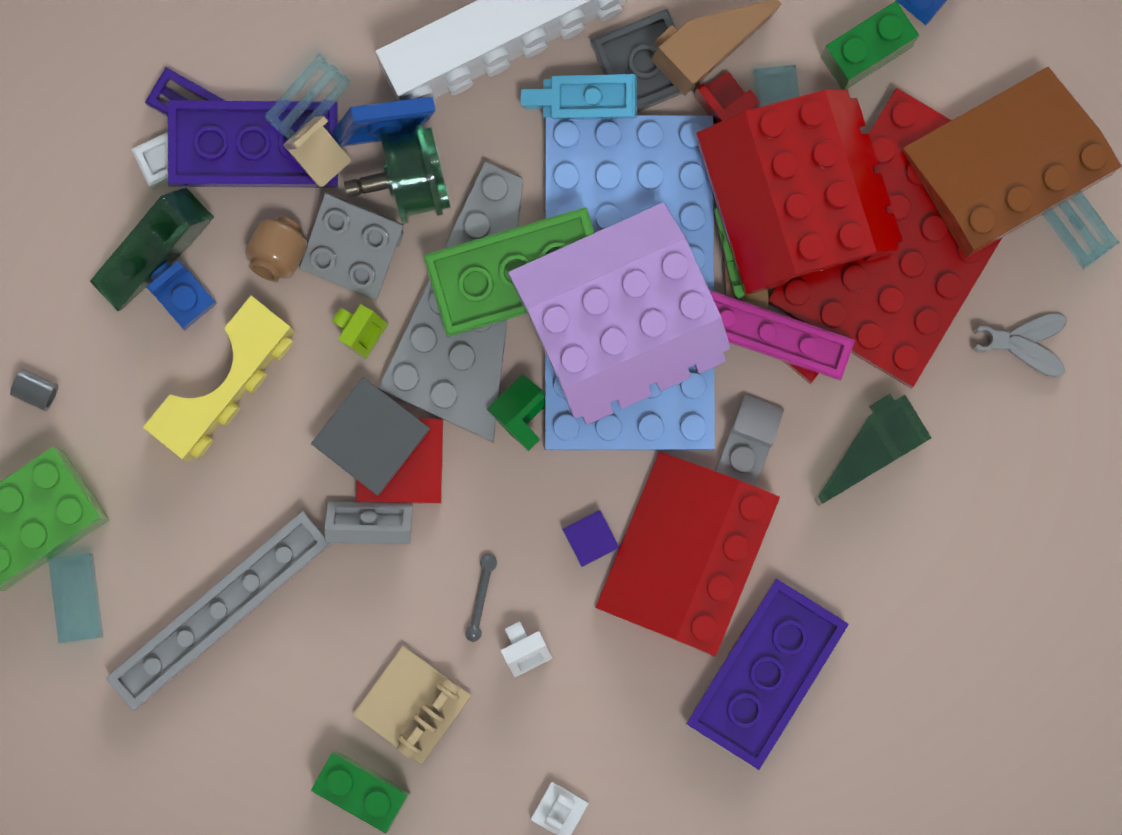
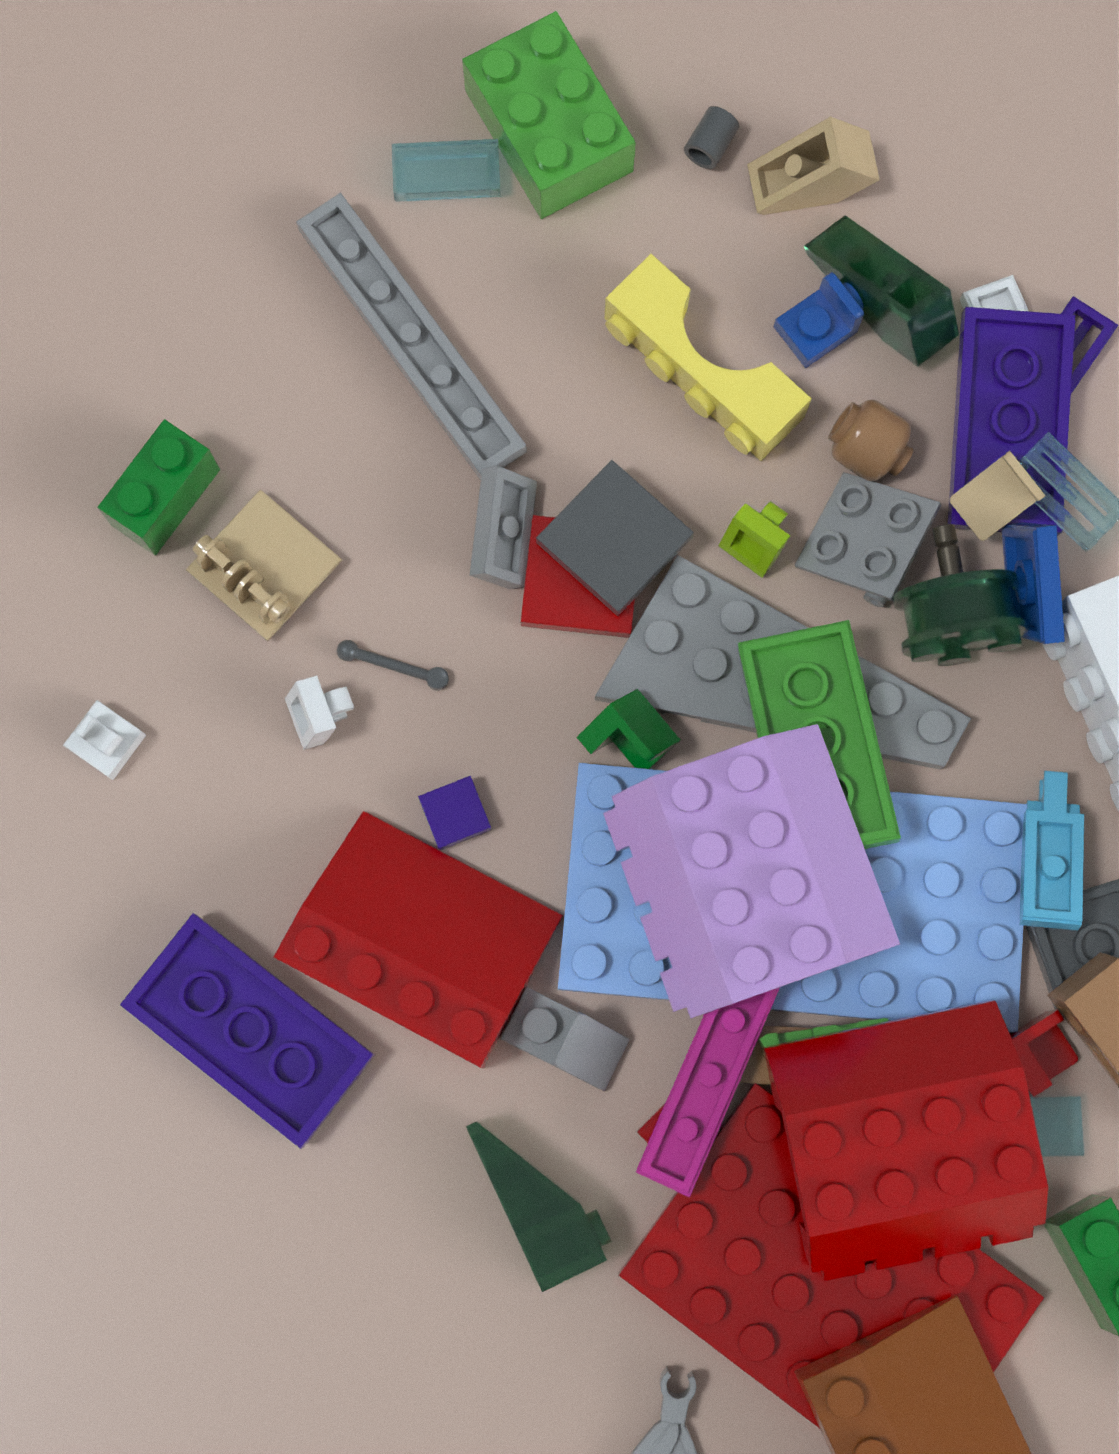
camera: 95 degrees right, 5 degrees down
(57, 307) = (814, 168): none -> tan slope

